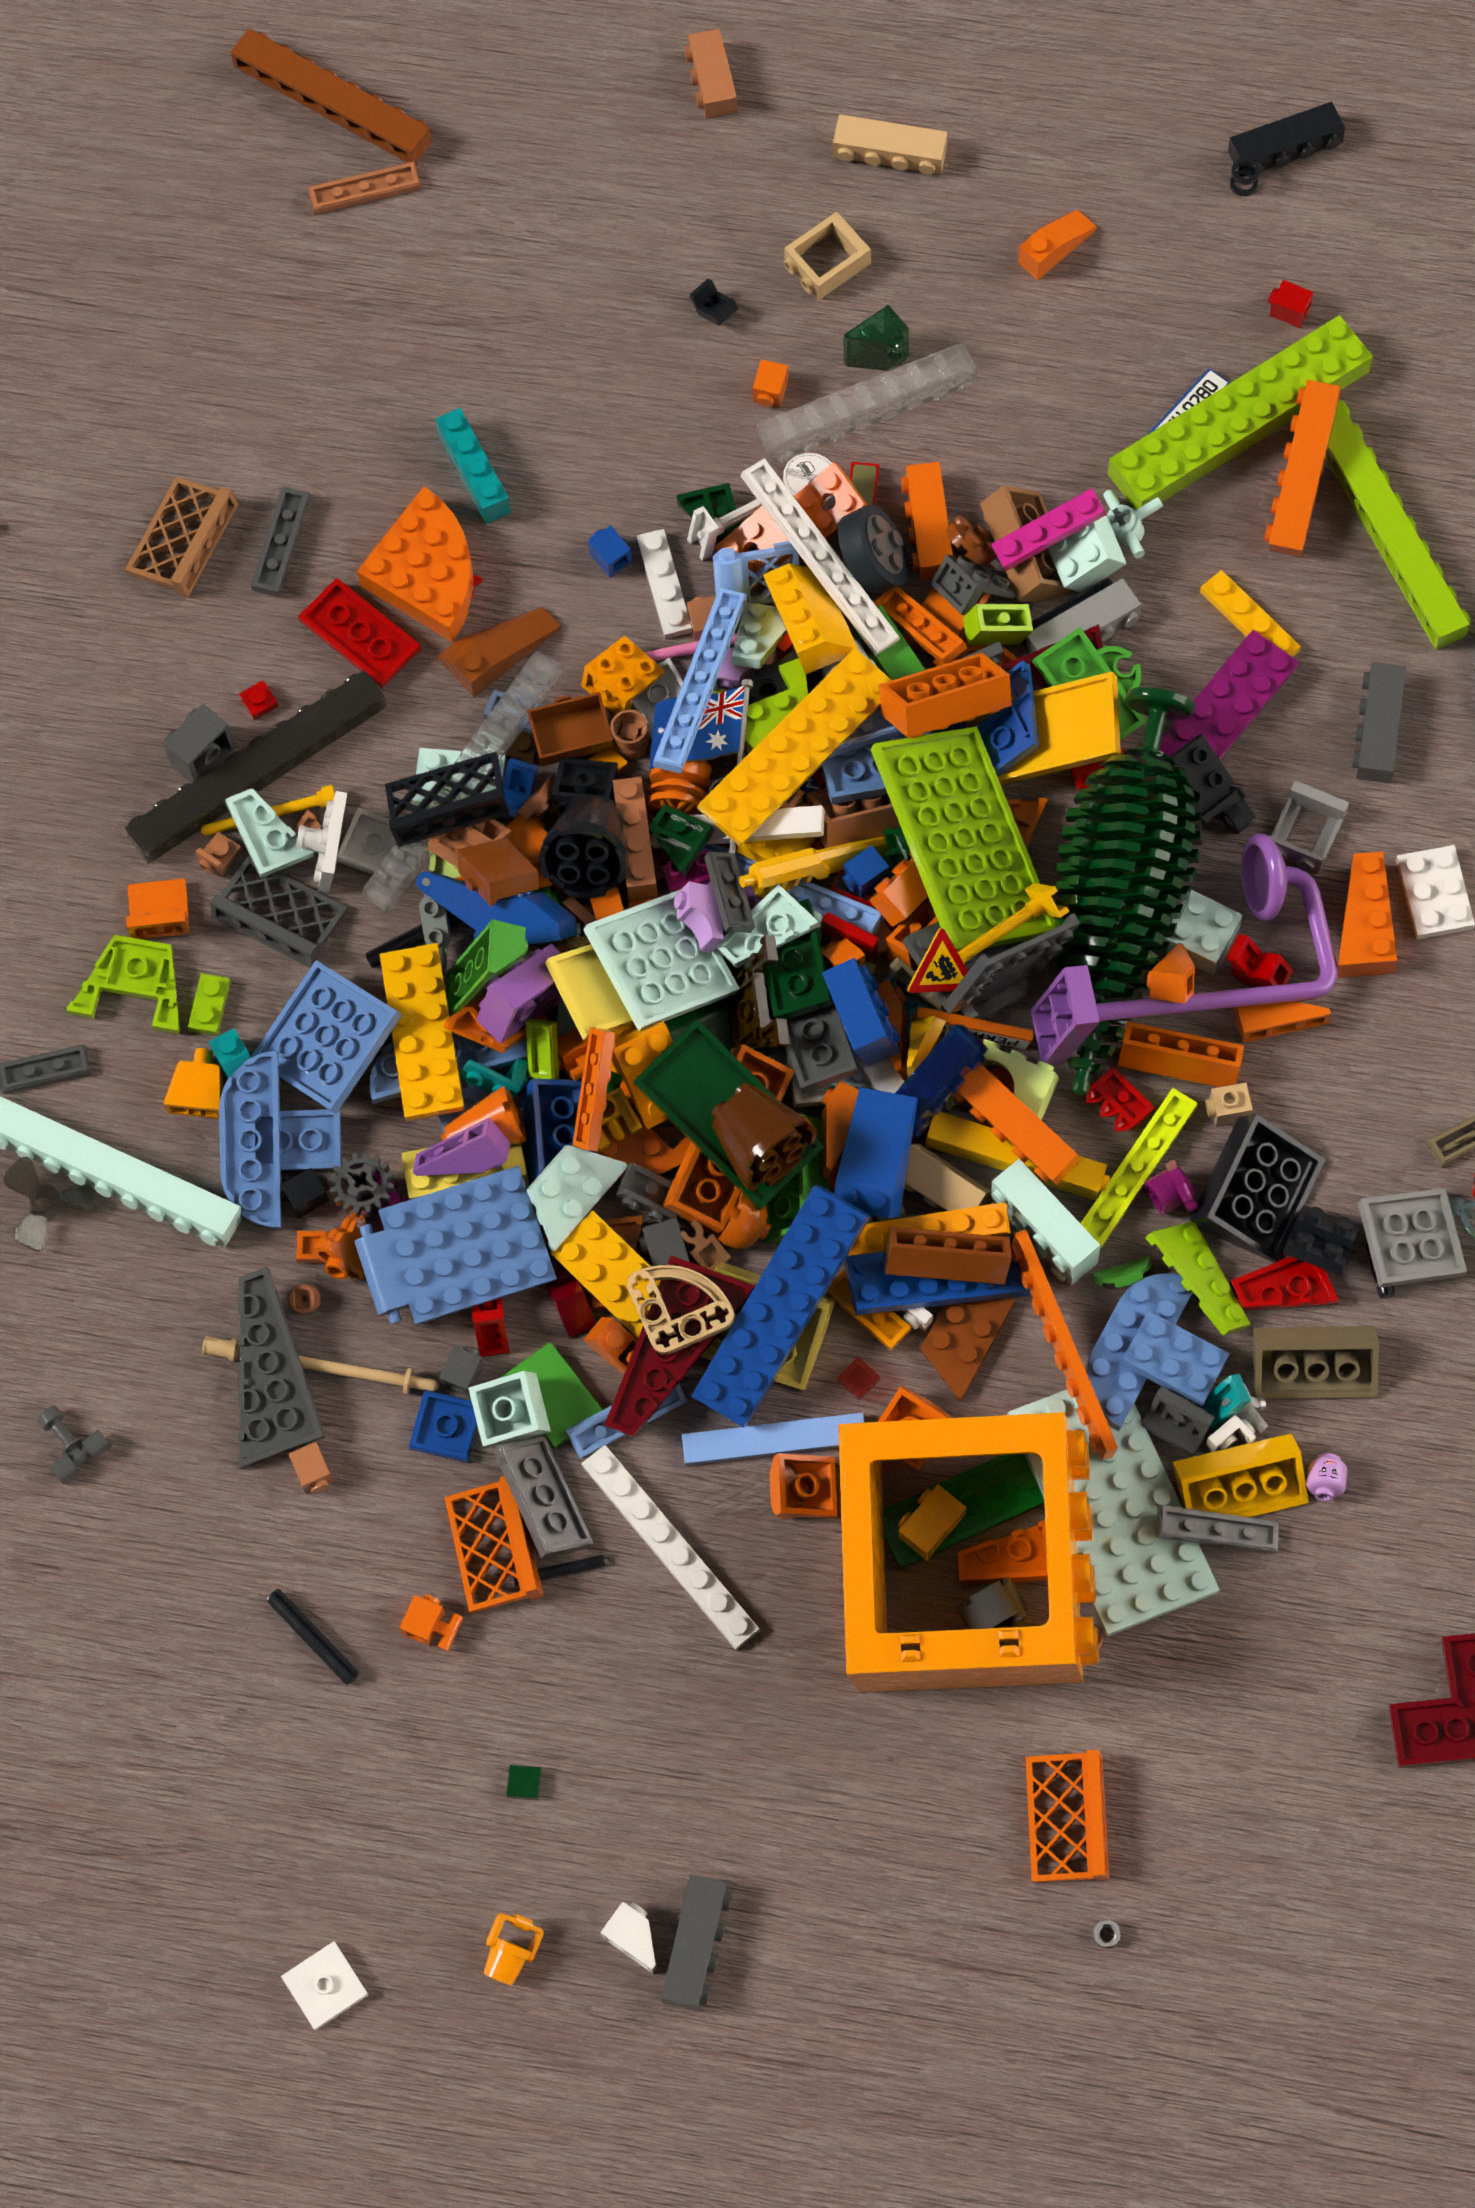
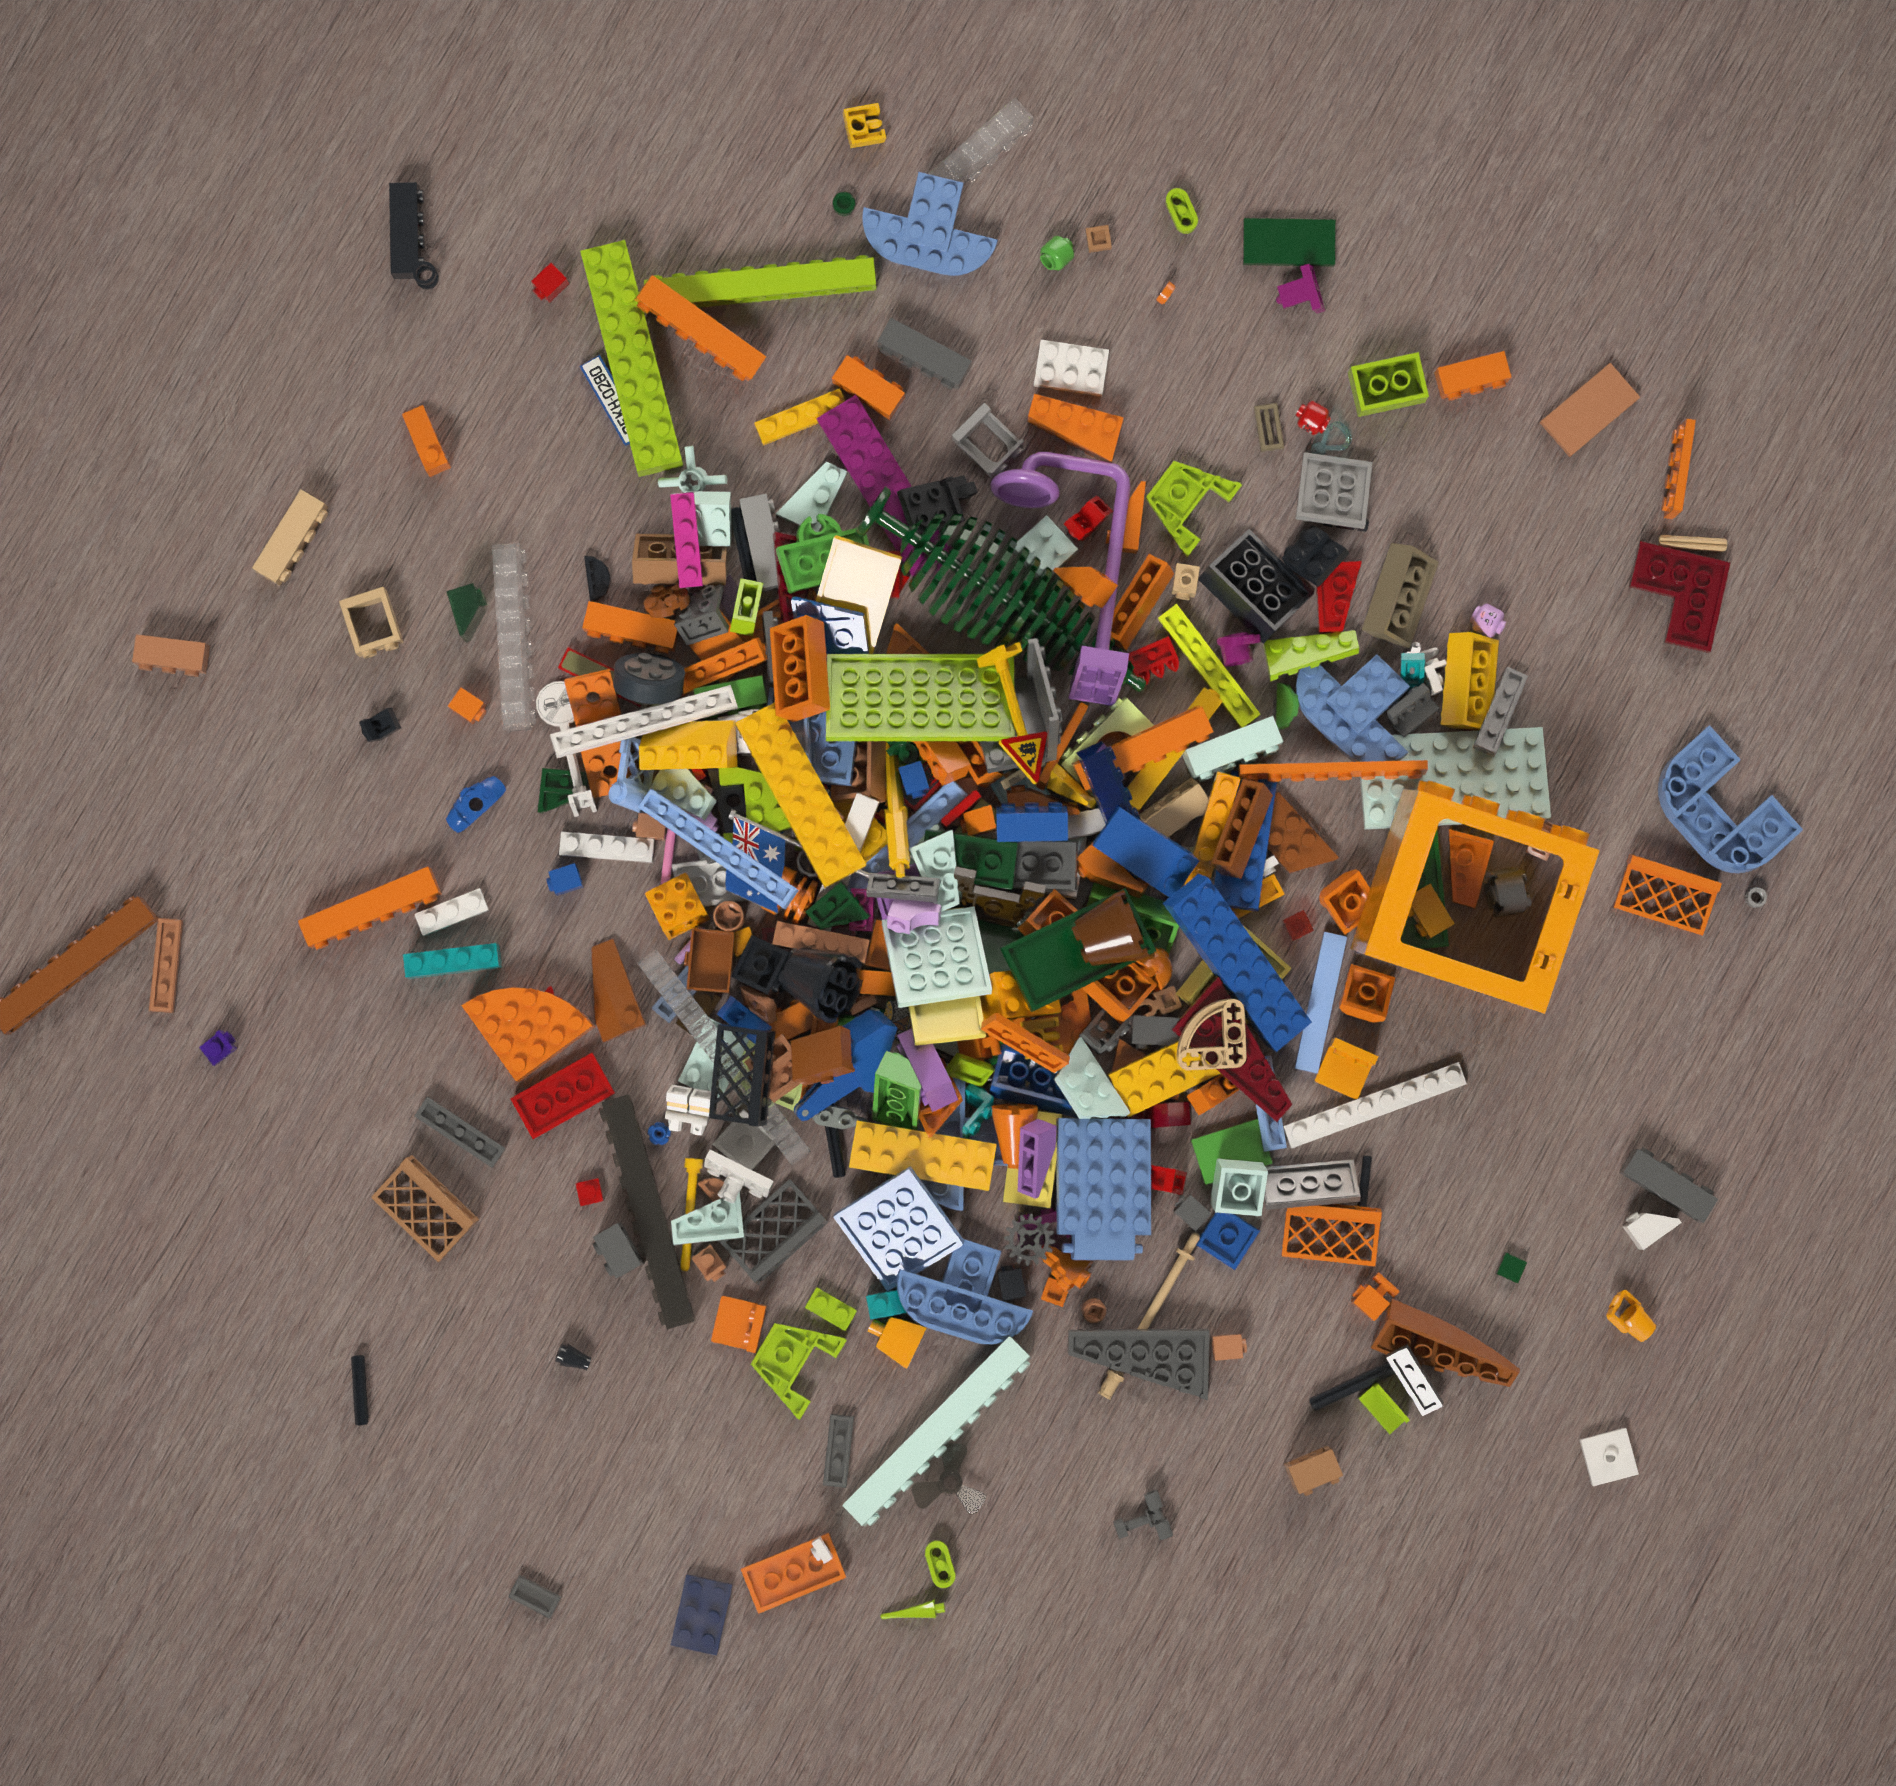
camera: 80 degrees left, 15 degrees up
(60, 743) = (572, 1357): none -> black cone
(191, 1615) = (1313, 1470): none -> medium nougat container
(291, 269) = (219, 1047): none -> dark purple bracket
(296, 1682) = (1383, 1408): none -> lime panel
(342, 1705) = (1414, 1379): none -> plate
(351, 756) = (654, 1138): none -> blue plate
(389, 763) = (687, 1107): none -> white hips
(397, 1707) = (1441, 1345): none -> dark orange wedge
(502, 363) = (370, 907): none -> orange brick
(529, 450) = (451, 912): none -> white plate
(680, 438) = (488, 791): none -> blue piece
(702, 1493) = (1345, 1068): none -> light orange bracket
(971, 470) = (597, 578): none -> black tile
(1163, 665) = (814, 496): none -> light aqua wing
(1175, 1833) = (1705, 824): none -> medium blue plate
(1316, 676) = (869, 386): none -> orange brick
(1333, 1063) = (1179, 494): none -> lime wing

